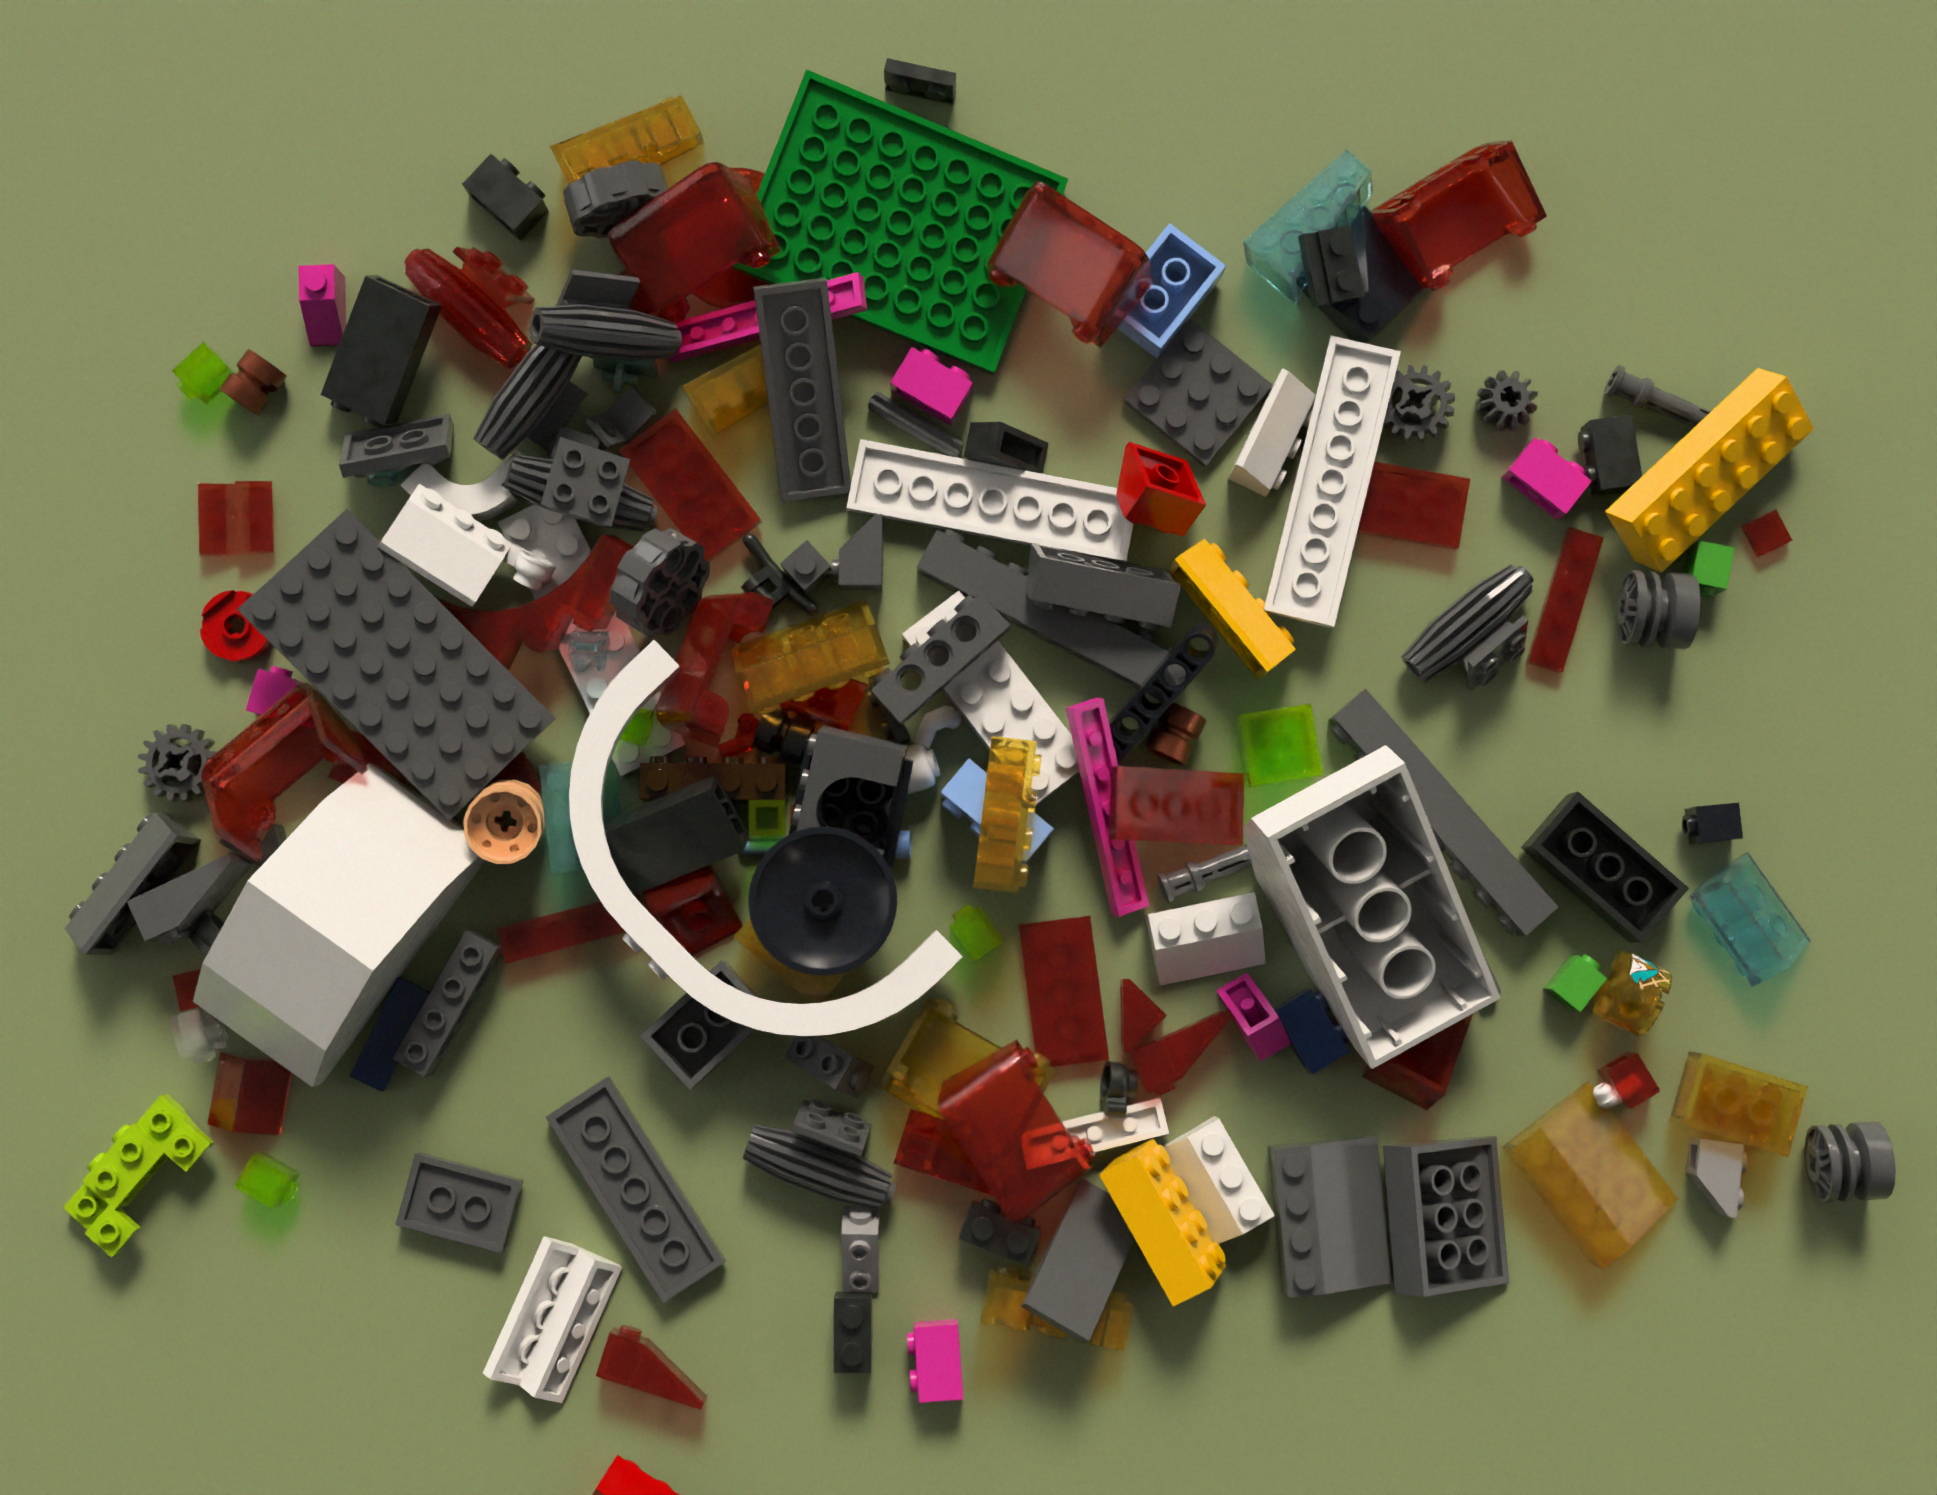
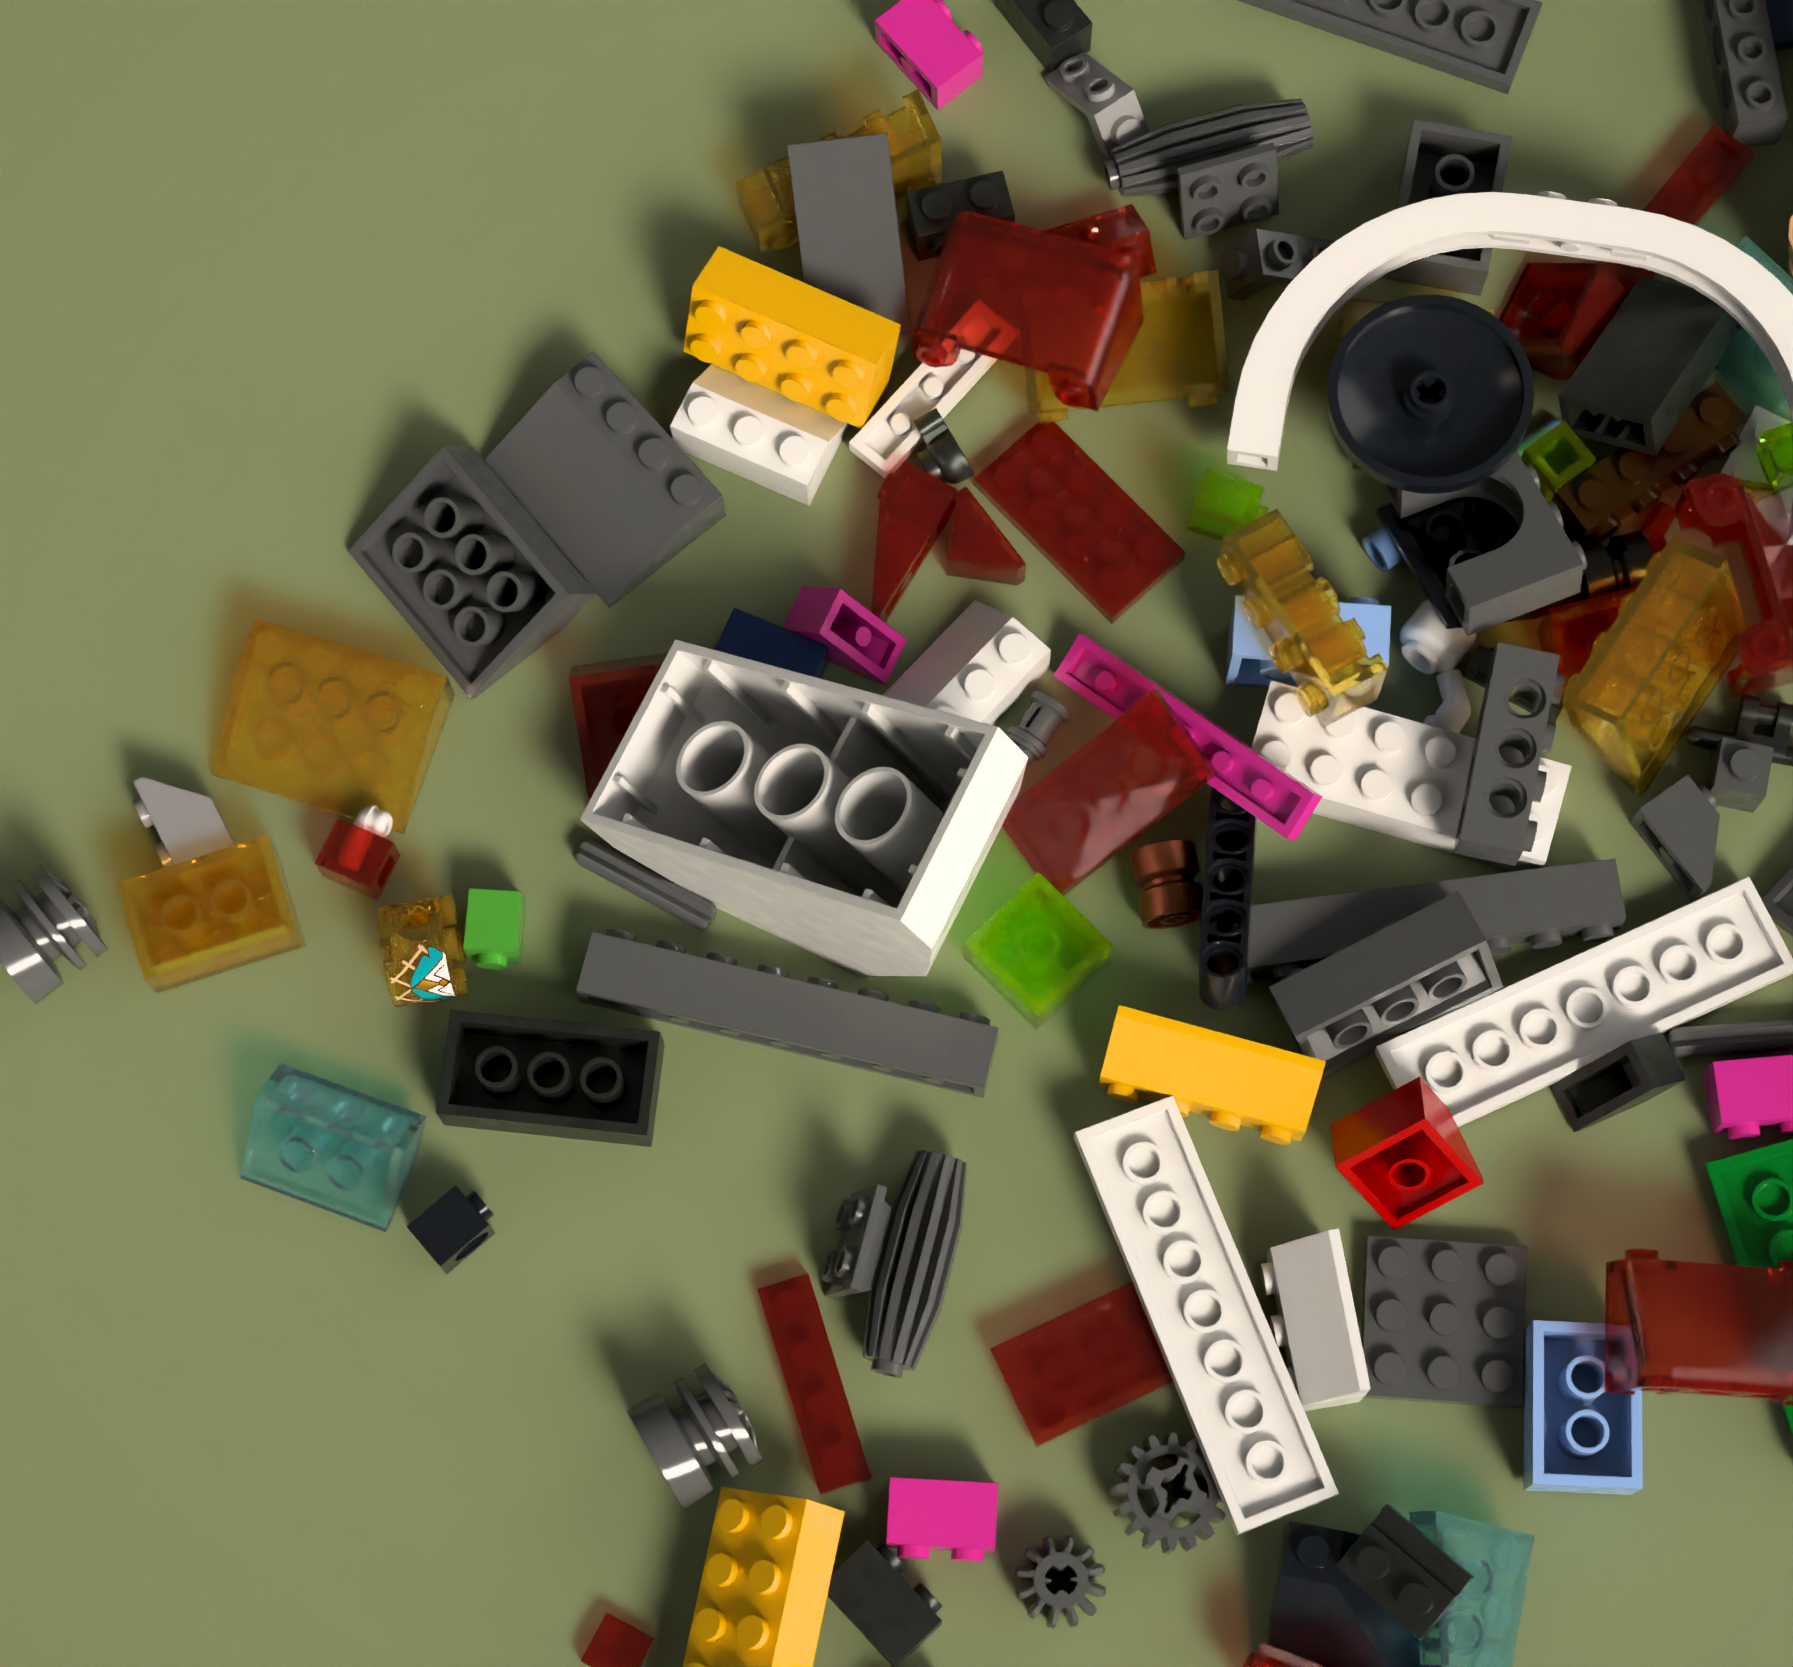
camera: 150 degrees right, 10 degrees down
(1710, 565) = (664, 1542): bright green brick -> none

